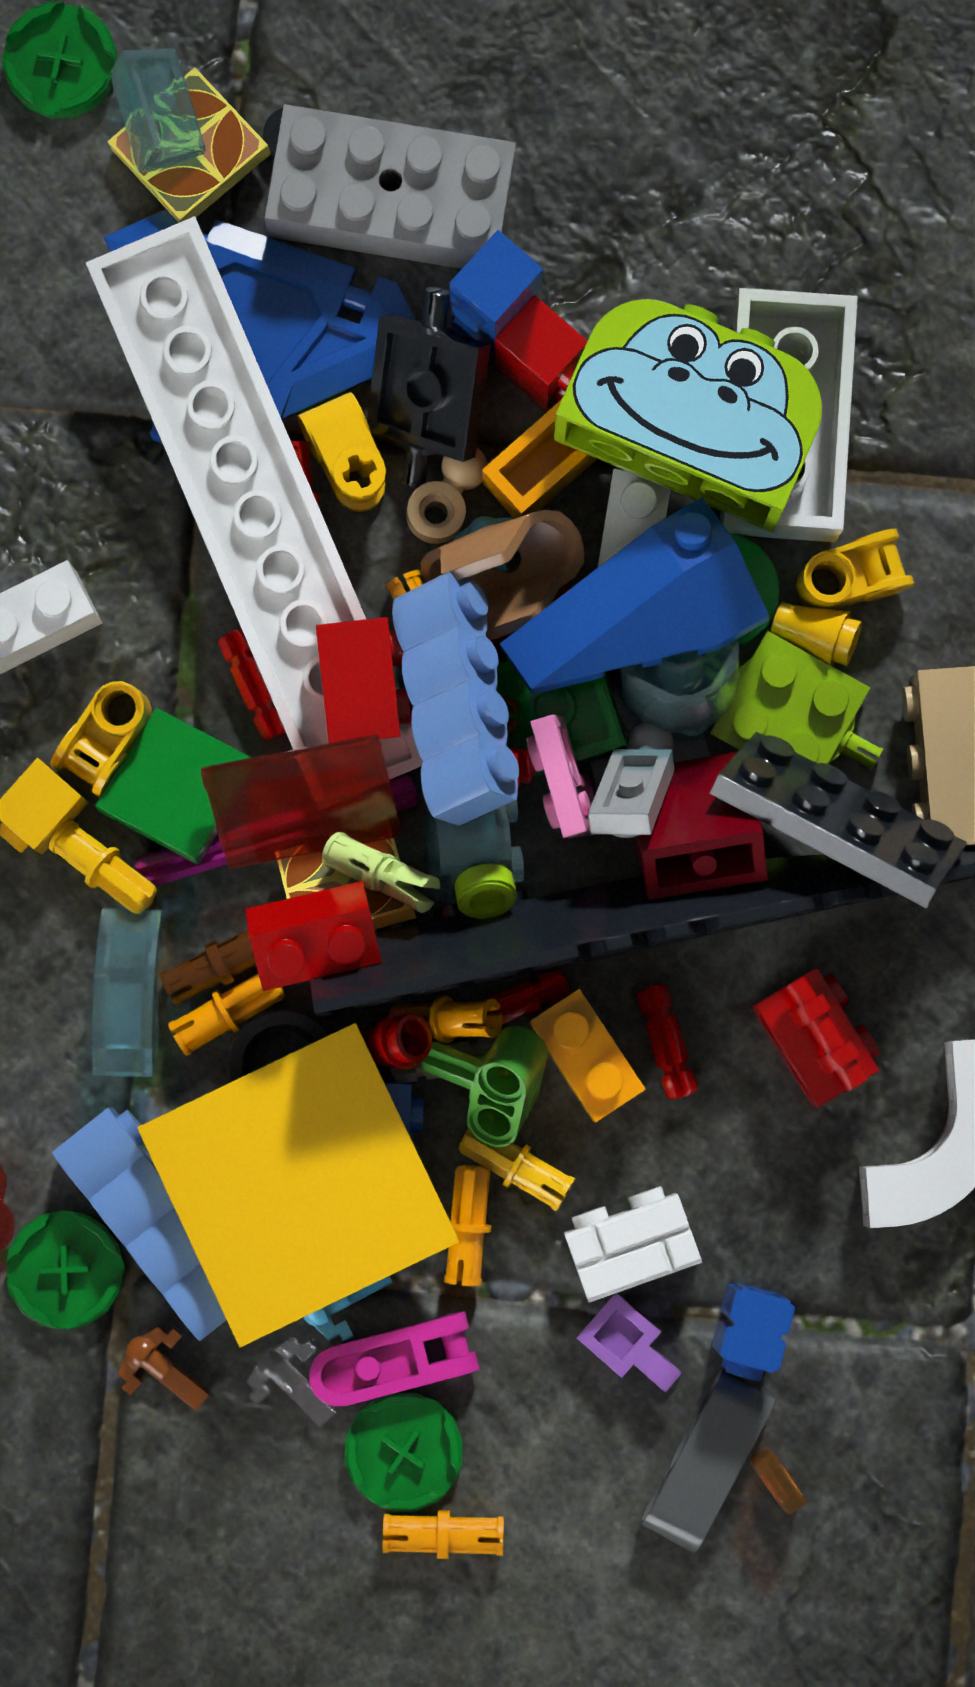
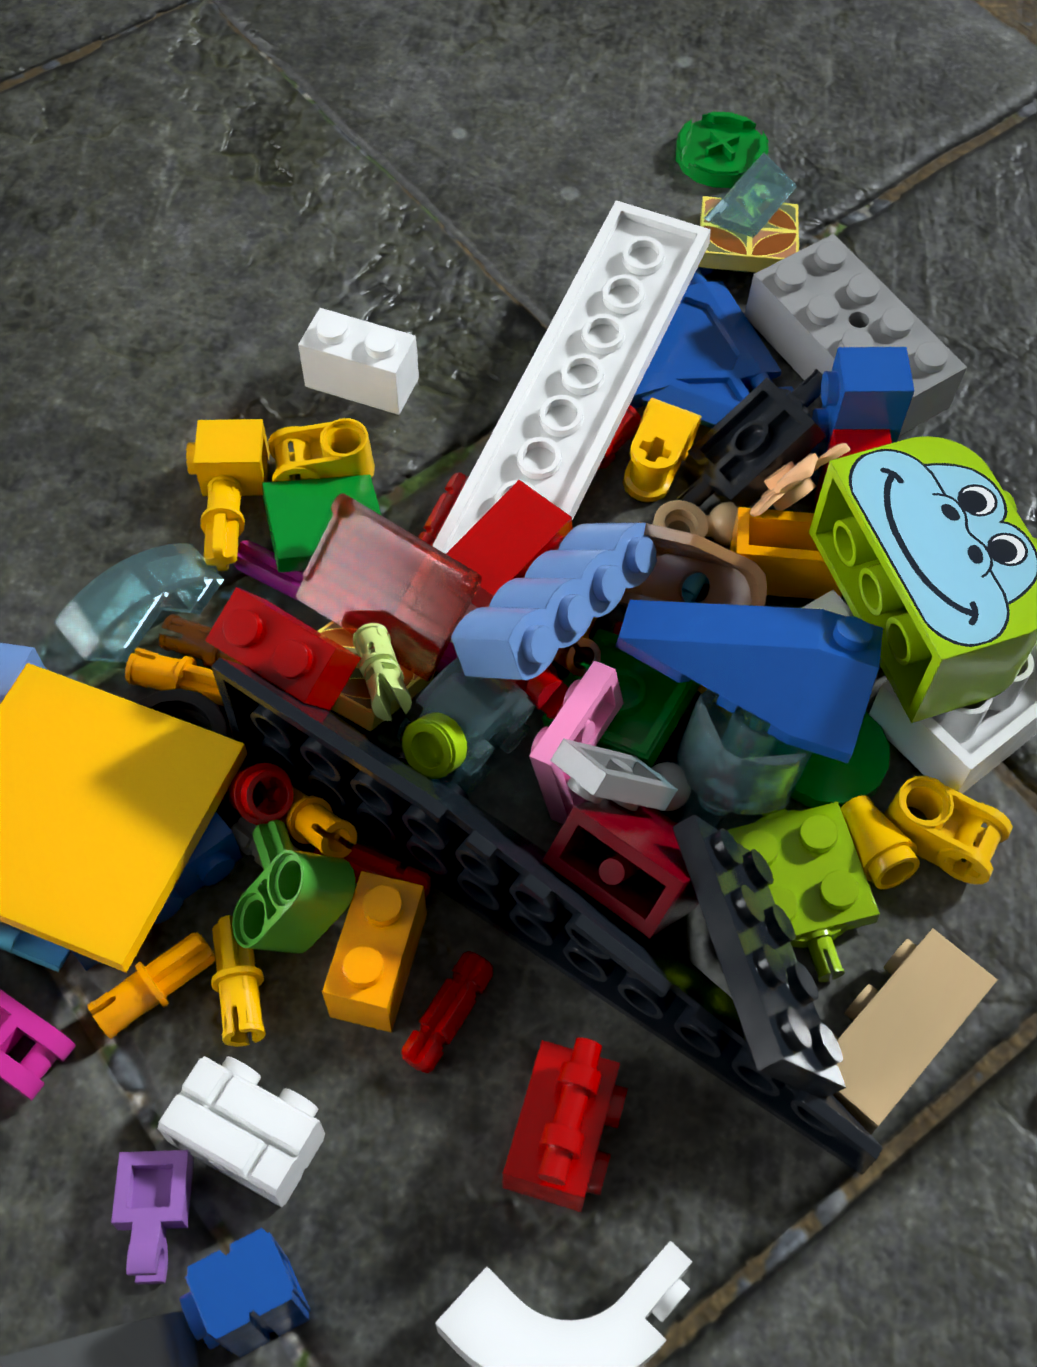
camera: 45 degrees right, 25 degrees down
(508, 416) = (794, 482): none -> light nougat plate

